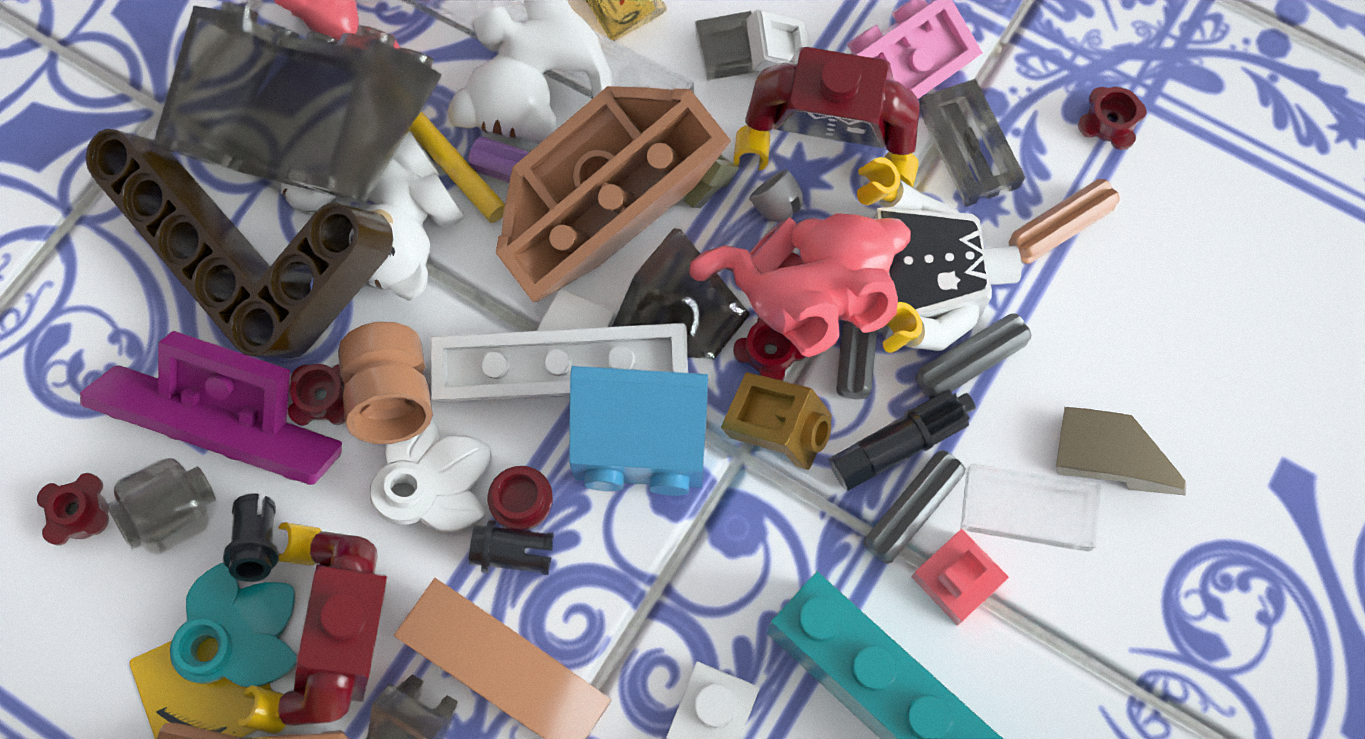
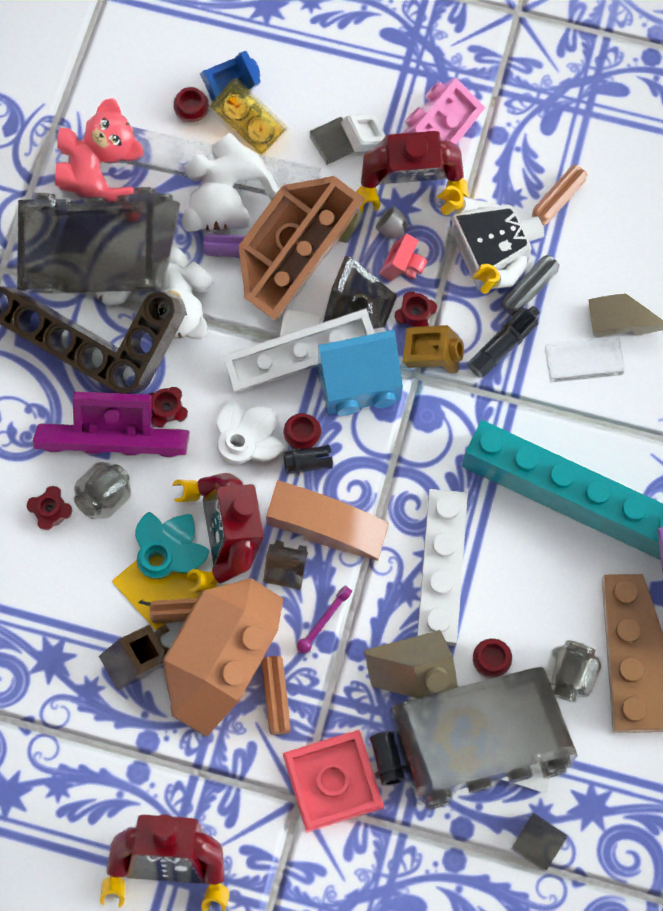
camera: 20 degrees left, 0 degrees up
(251, 549) = (164, 498): black pin -> none
(384, 383) = (207, 387): nougat wheel -> none
(458, 169) = (204, 260): yellow bar -> none
(839, 279) = (445, 260): coral animal -> none
(856, 362) = (463, 292): dark grey axle -> none
(914, 506) = (522, 376): dark grey axle -> none
(959, 577) = (557, 406): coral tile -> none
(988, 185) = (502, 152): clear smoke tile -> none
(1116, 103) = (574, 118): dark red plate -> none

